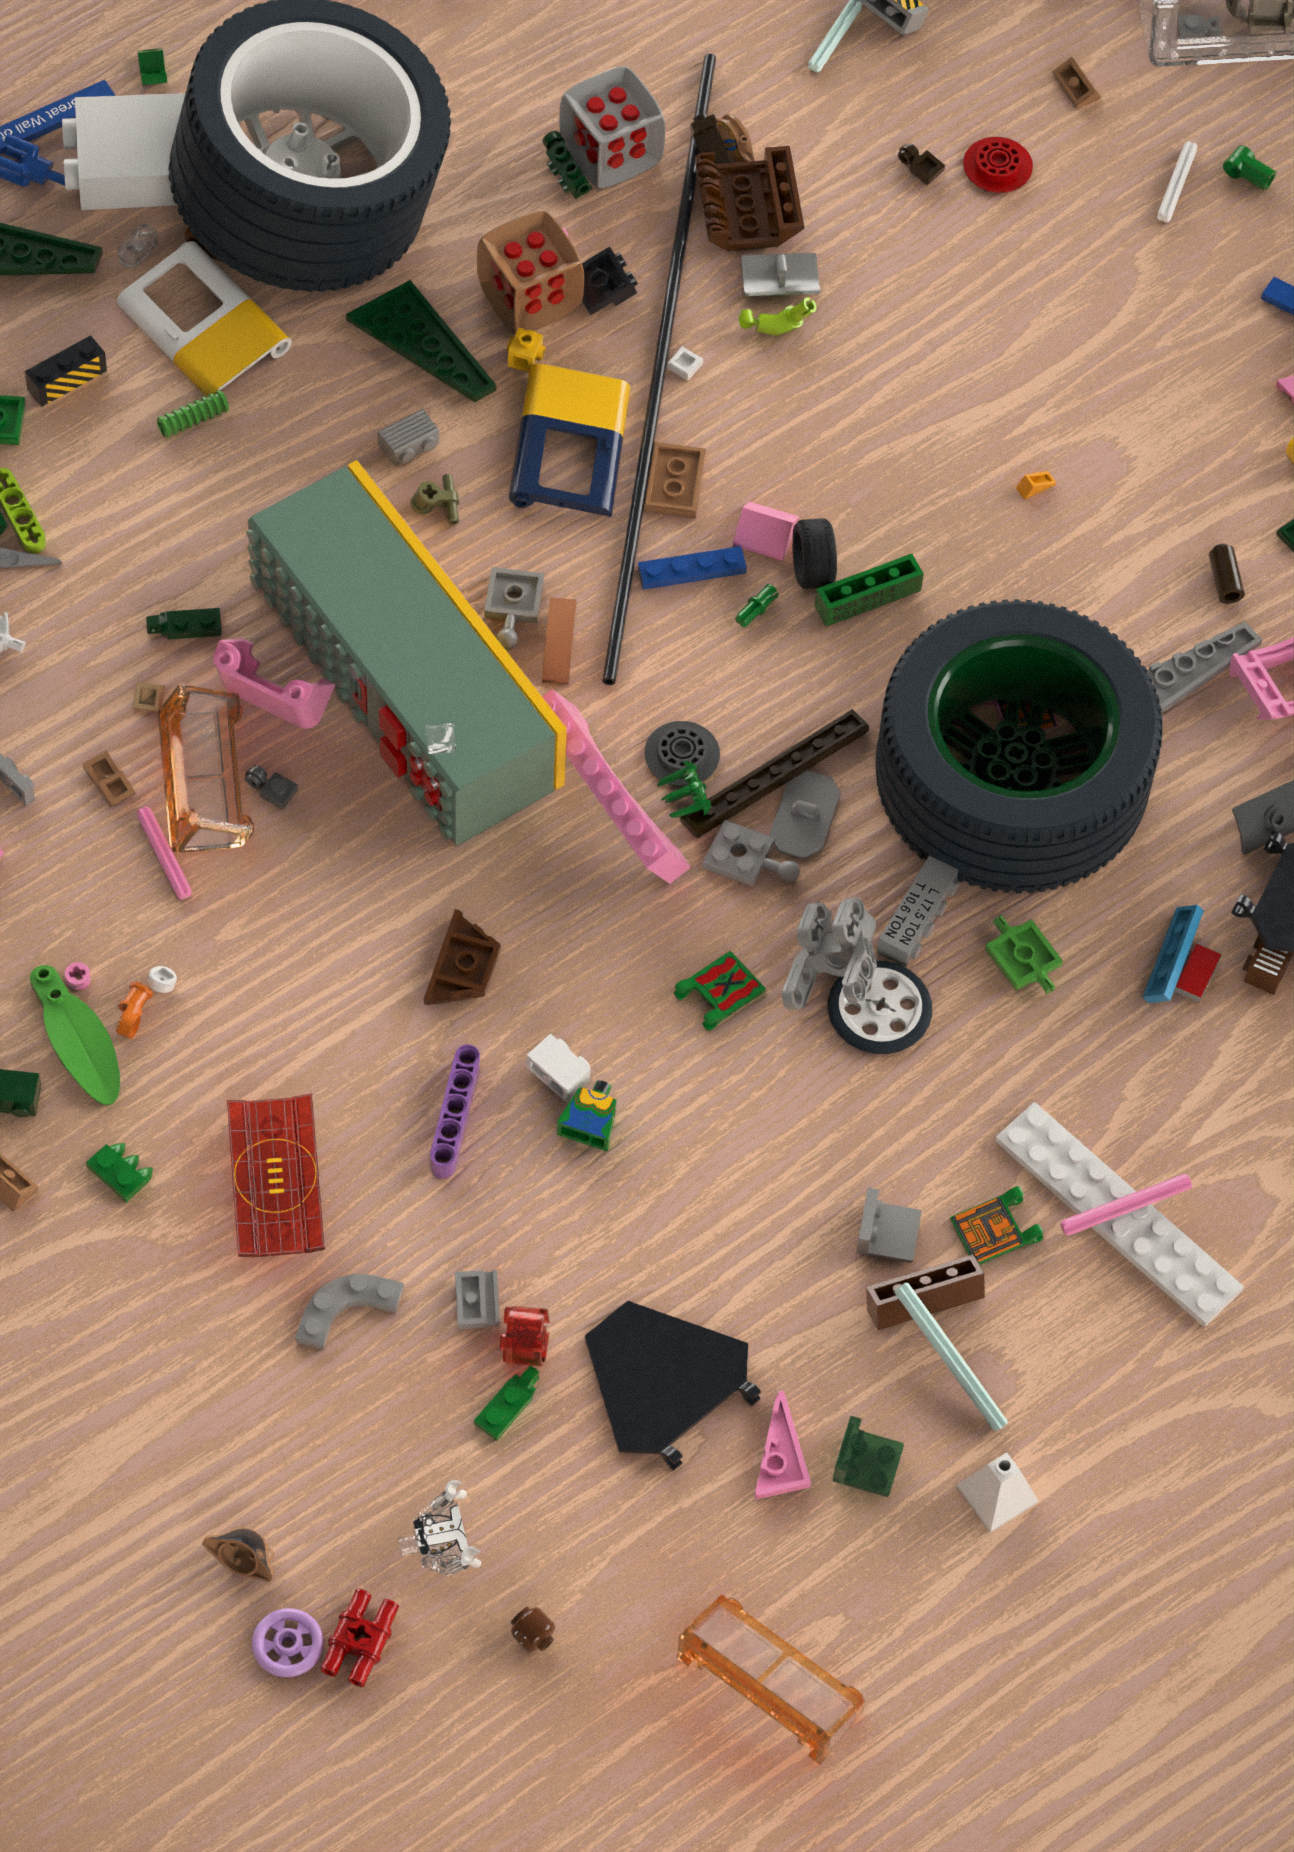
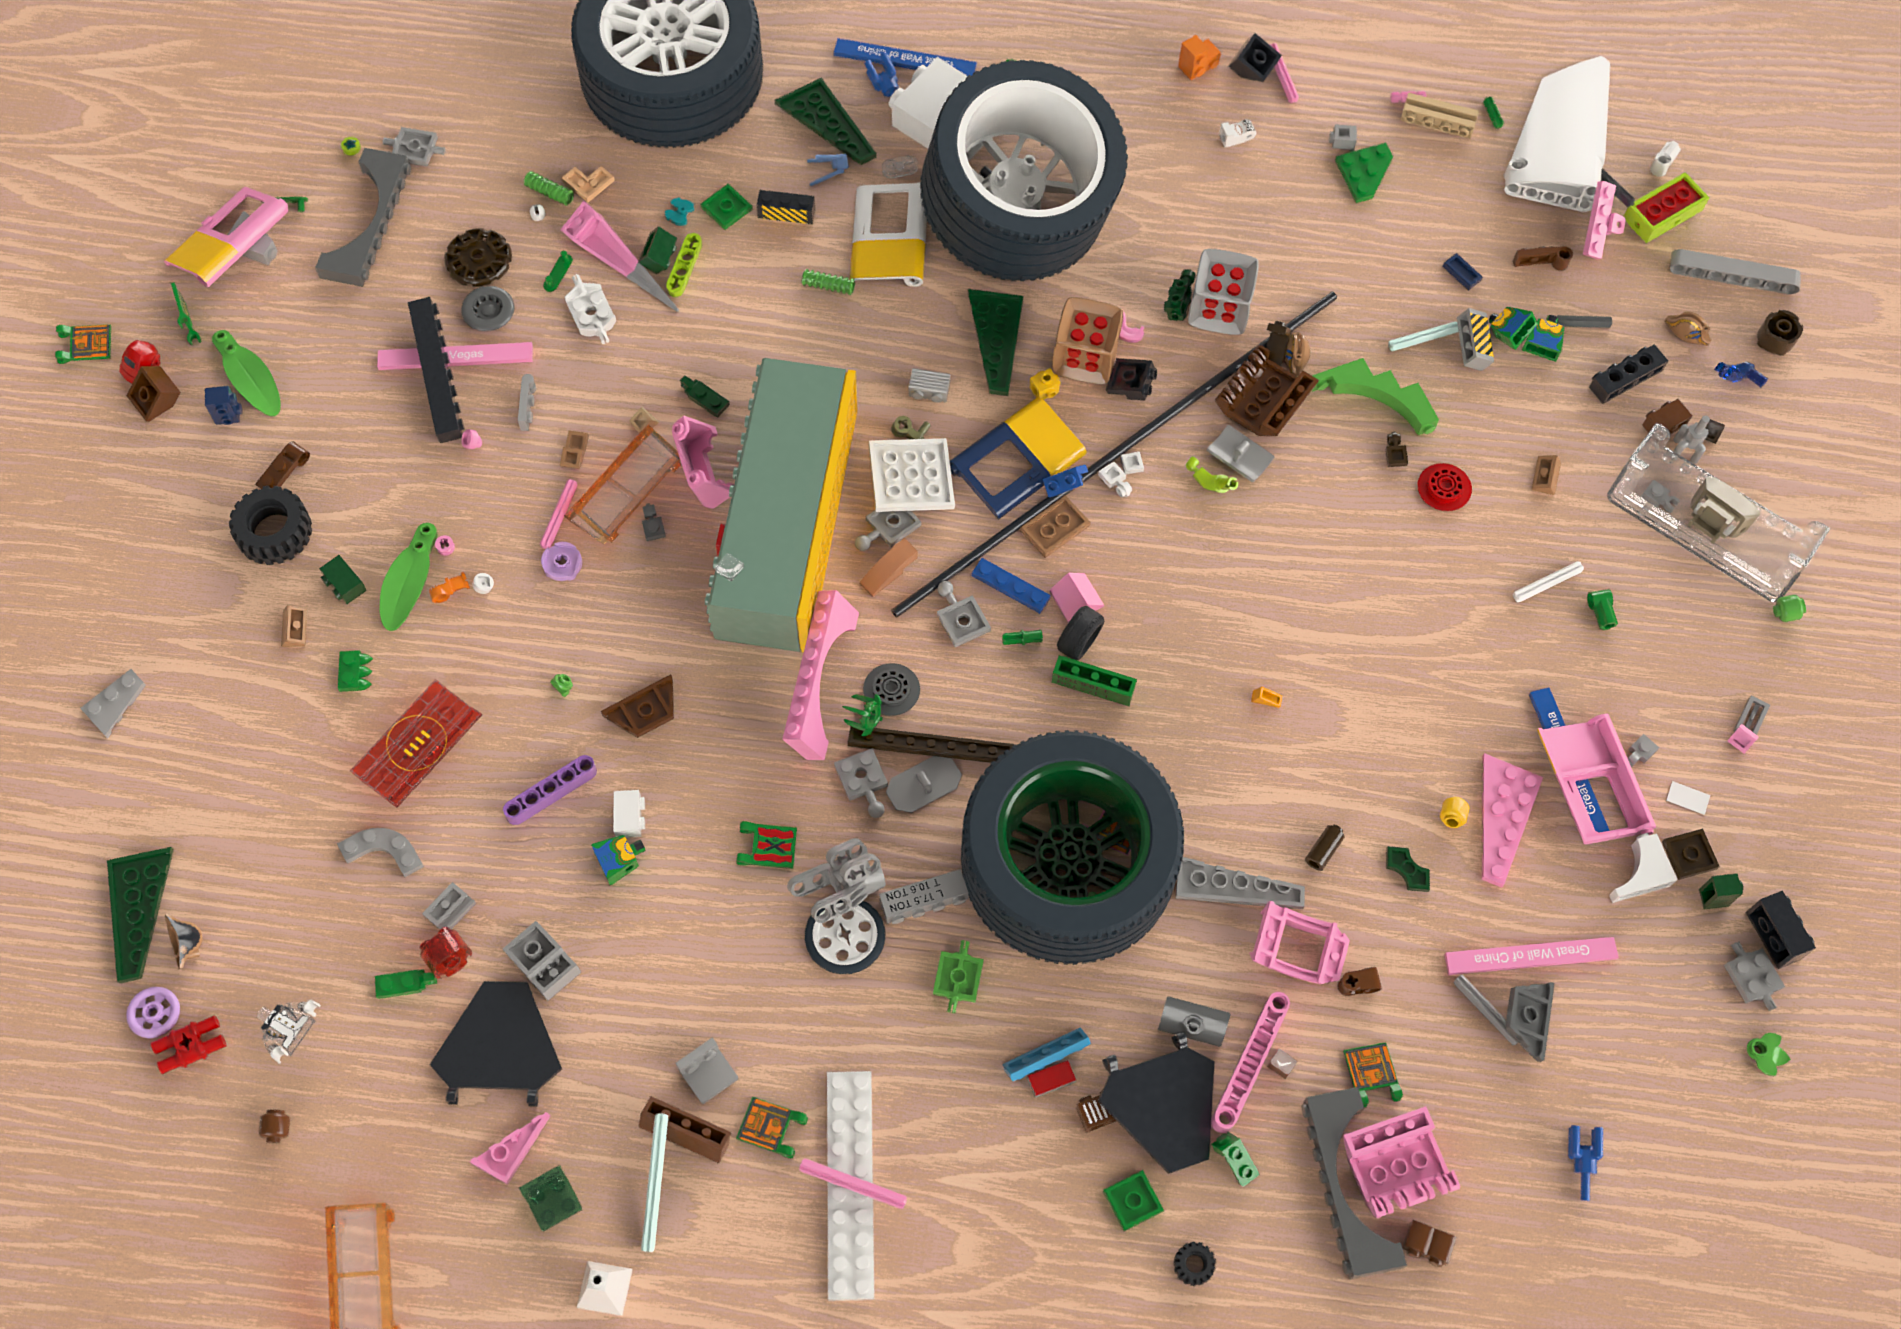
camera: 45 degrees right, 5 degrees up
(68, 287) = (837, 161): none -> medium blue plant
(146, 1559) = (135, 900): none -> dark green wing
(220, 908) = (561, 572): none -> lavender plate
(352, 1007) = (562, 684): none -> bright green plate
(488, 535) = (911, 475): none -> white plate
(621, 1267) = (542, 960): none -> light grey slope
(647, 424) = (1064, 481): none -> blue bracket
(673, 622) = (965, 608): none -> light grey plate
(682, 387) = (1112, 476): none -> white plate
(851, 111) = (1358, 380): none -> bright green arch

